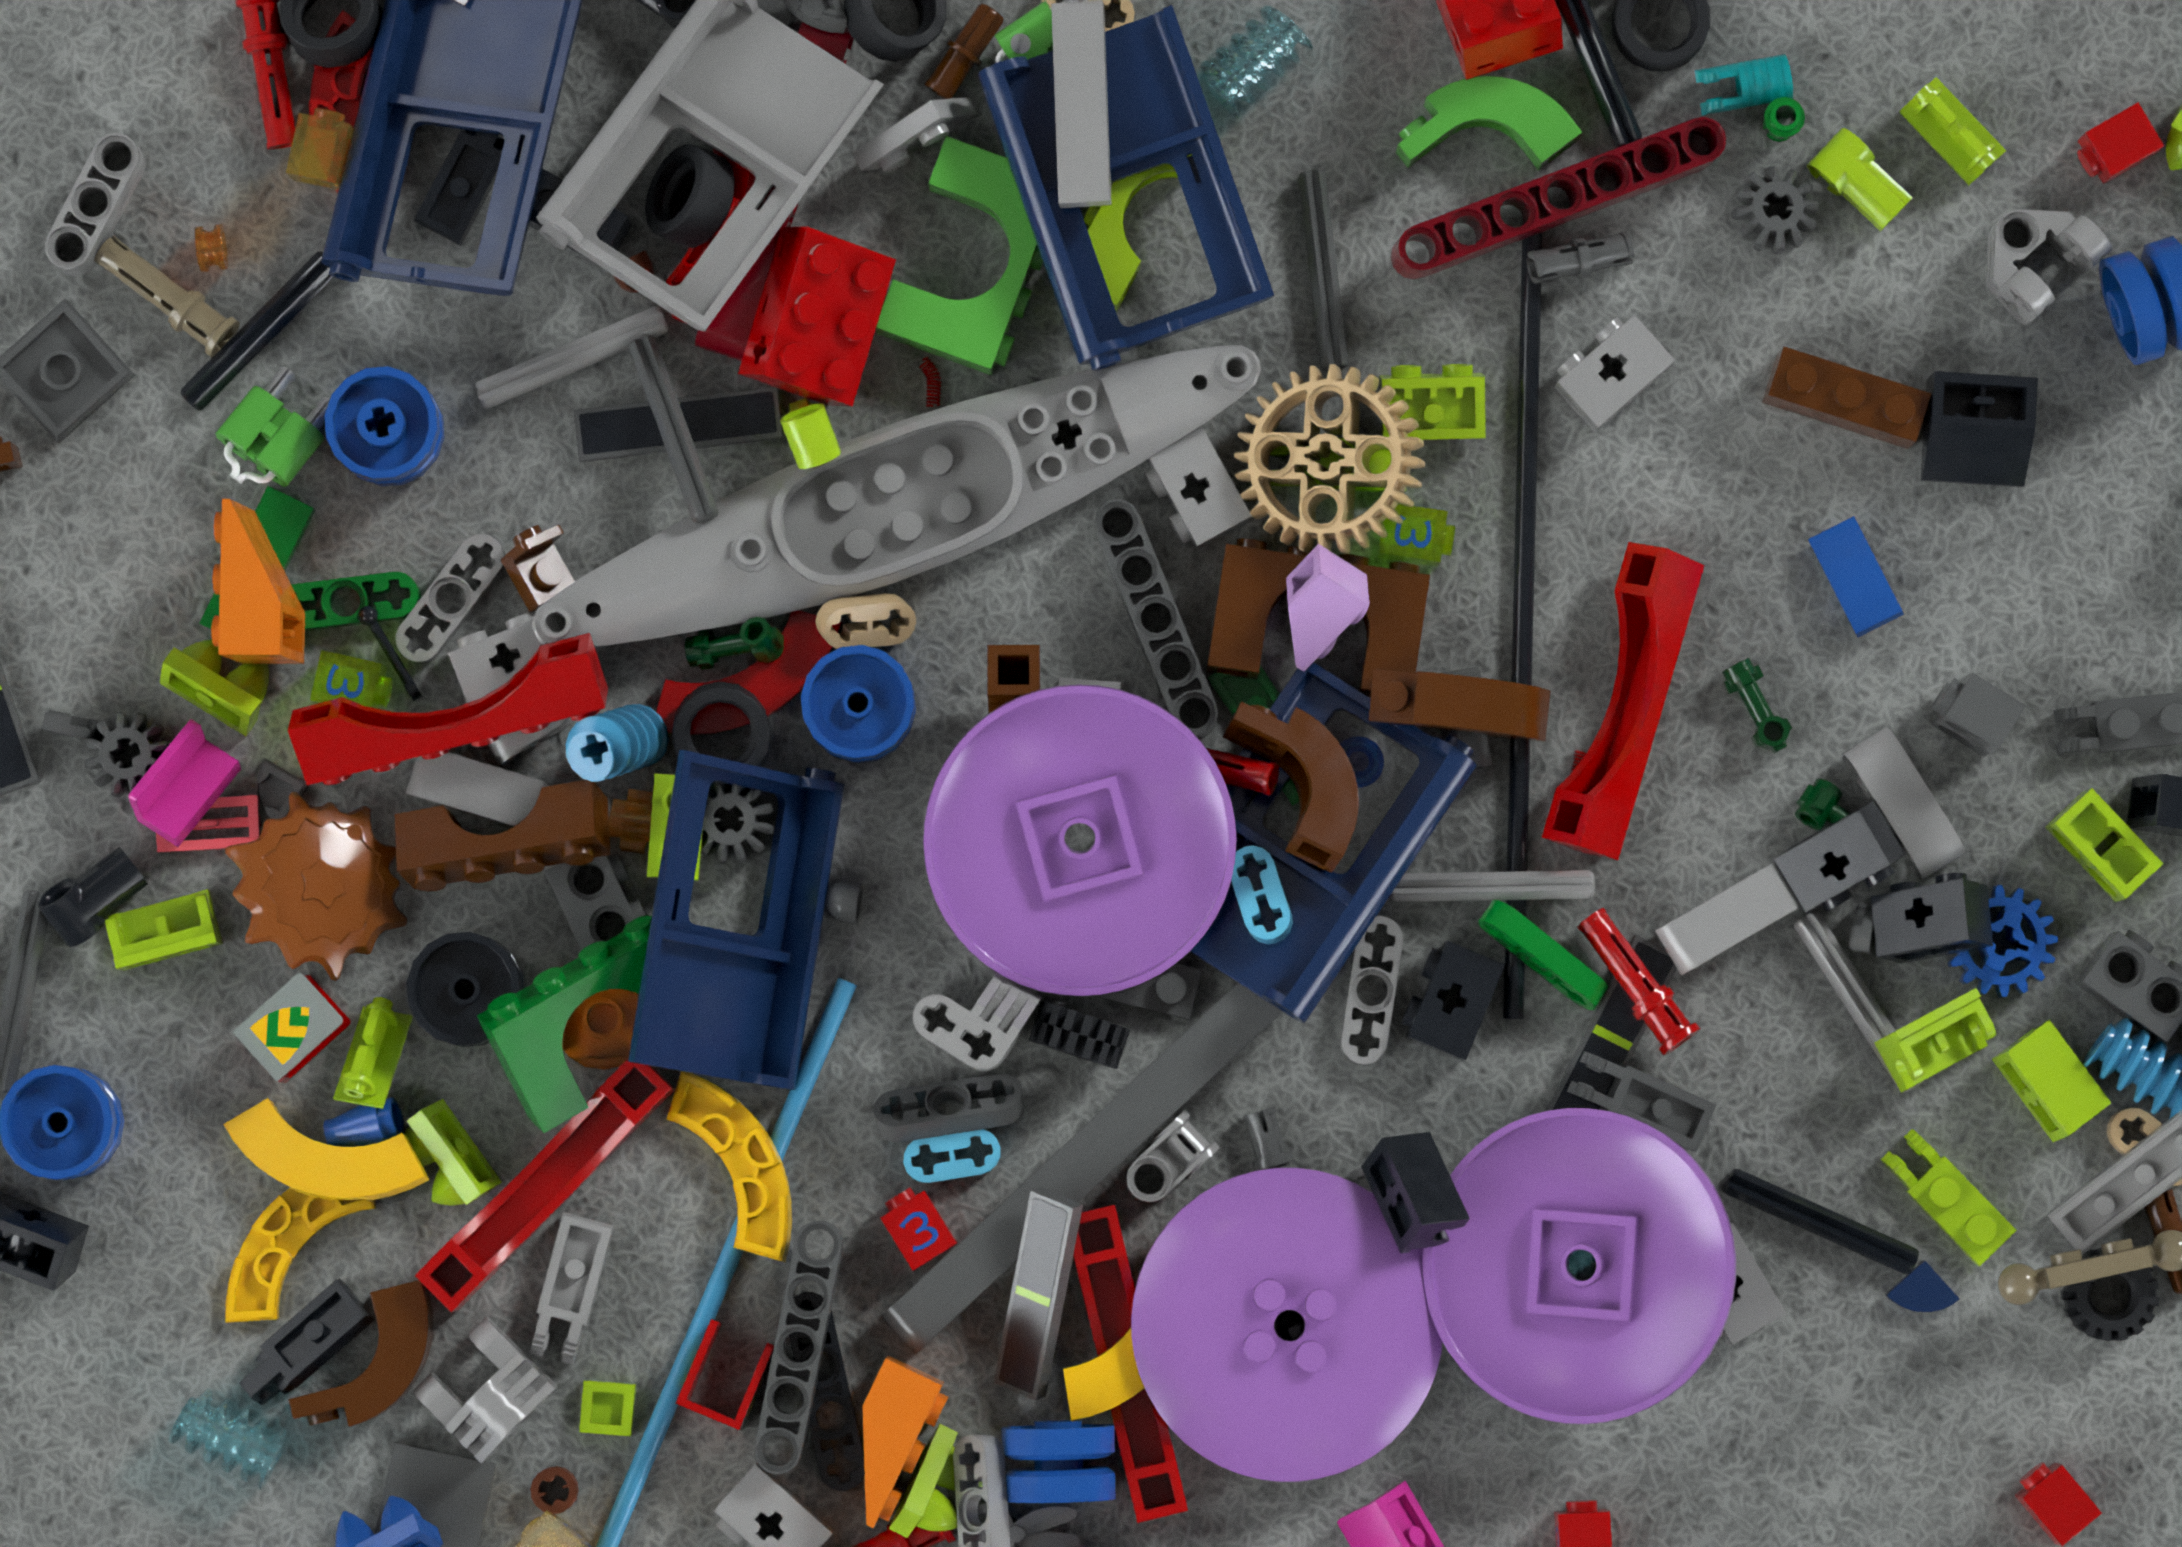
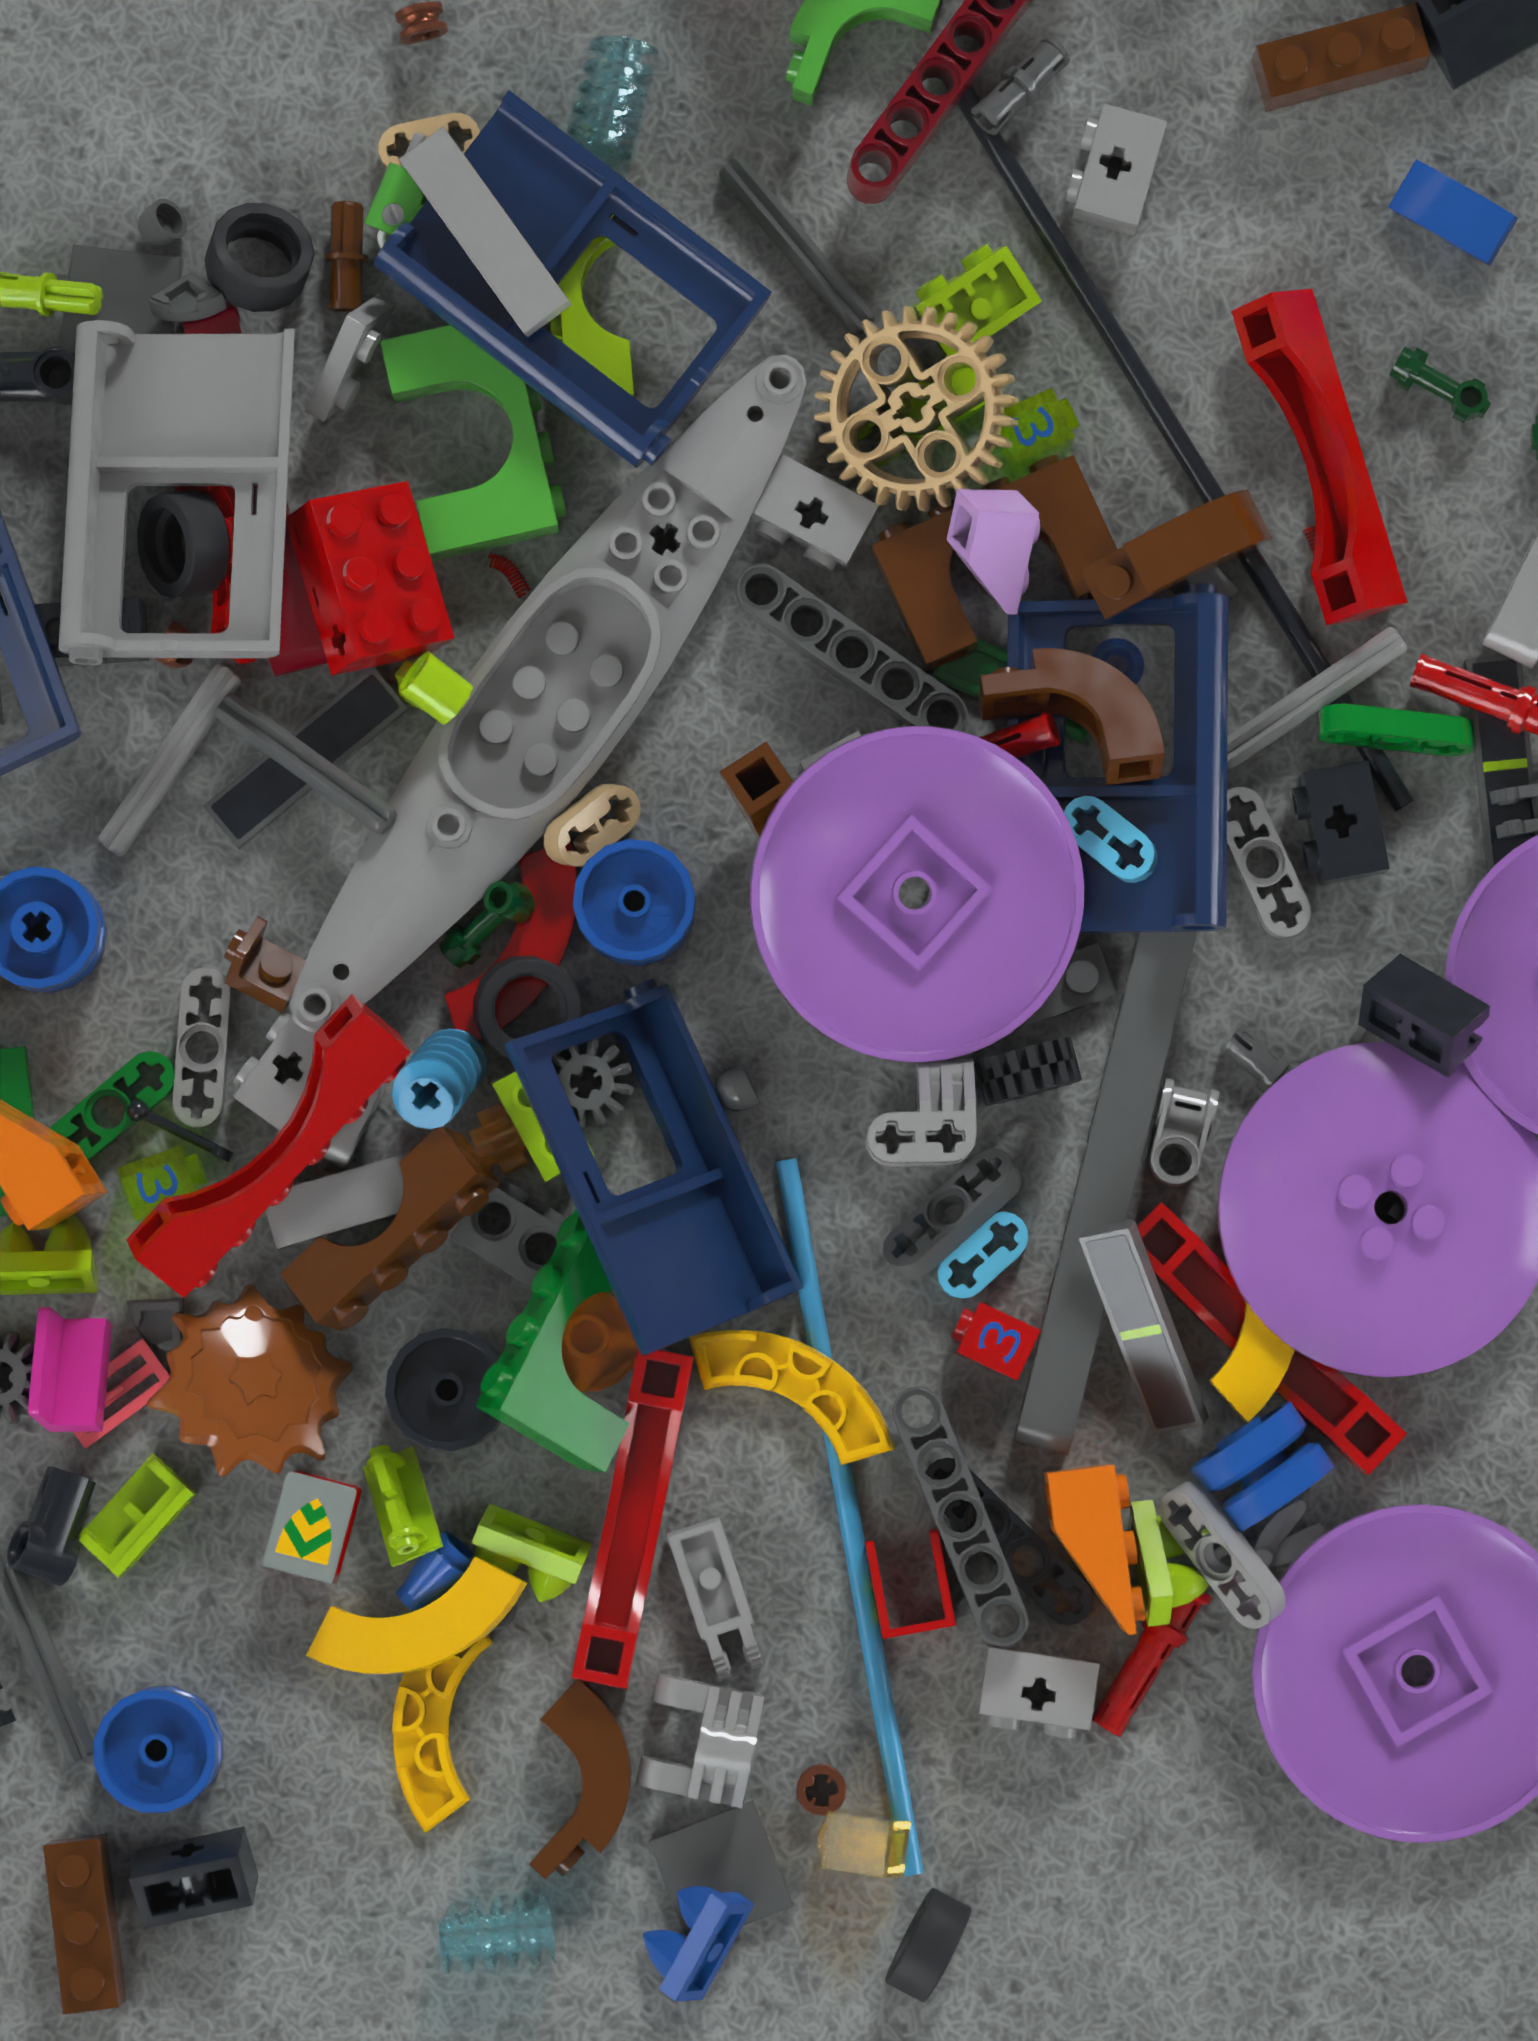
camera: 30 degrees left, 0 degrees up
(307, 1342) = (511, 1802): black hinge -> none
(607, 1408) = (820, 1684): lime tile -> none

